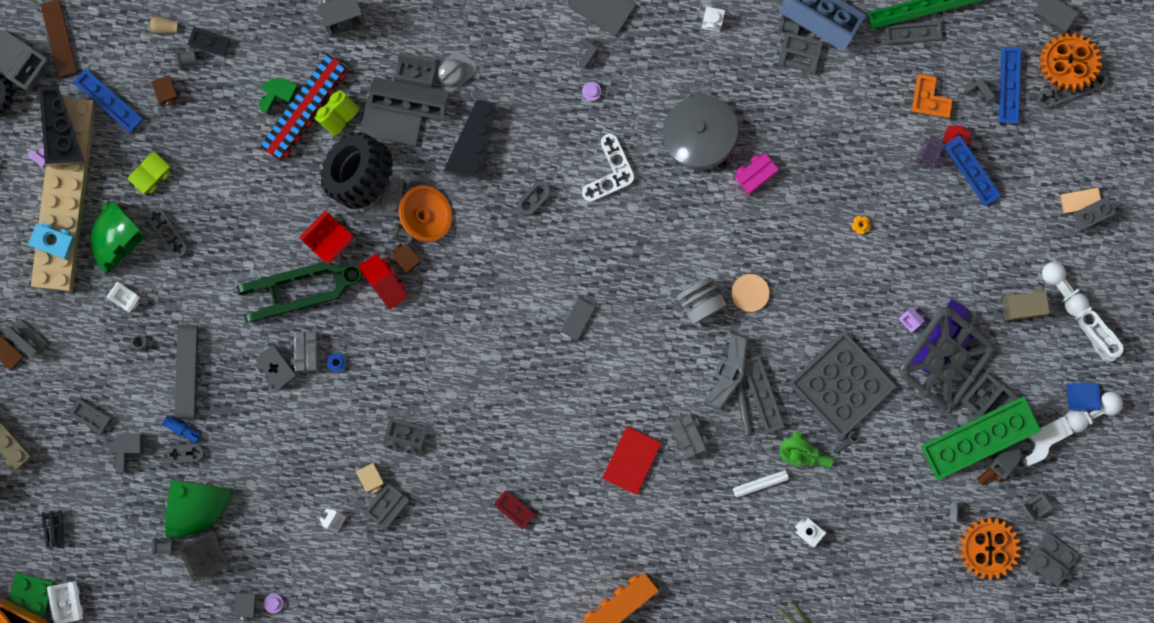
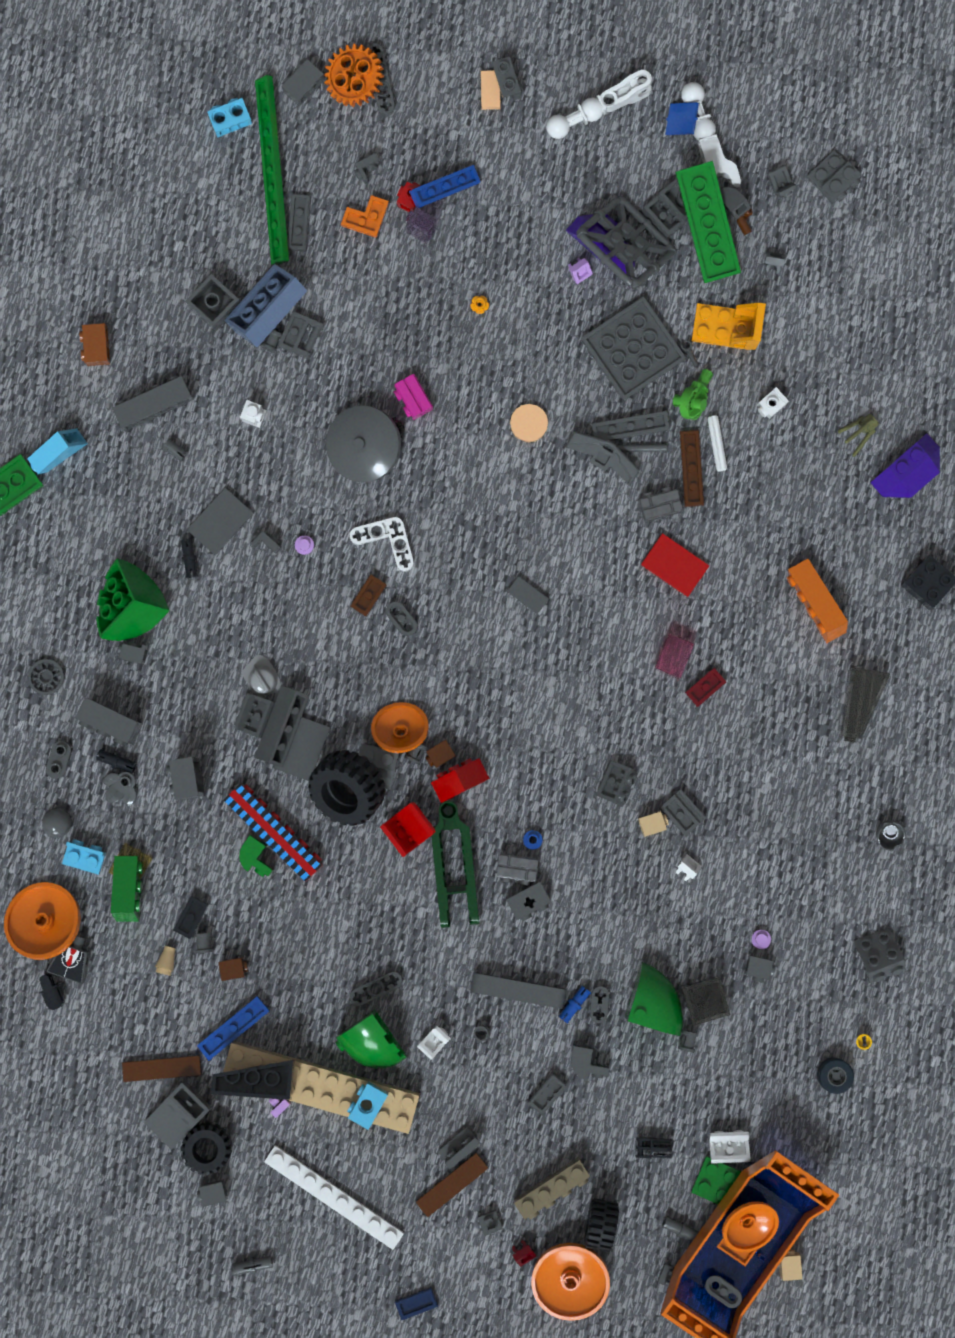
camera: 75 degrees left, 0 degrees up
(150, 173) = (313, 996): lime brick -> none
(336, 113) = (284, 800): lime brick -> none
(472, 145) = (341, 671): black wedge -> none
(539, 473) = (674, 656): none -> clear pink piece
(551, 162) = (368, 595): none -> reddish brown plate
(701, 300) = (530, 470): light grey wheel -> none
(731, 462) = (691, 468): none -> reddish brown tile
(881, 475) = (729, 326): none -> light orange bracket
(971, 548) = (816, 217): orange gear -> none
(1009, 85) = (366, 138): blue plate -> none
(1025, 305) = (585, 158): dark tan container -> none

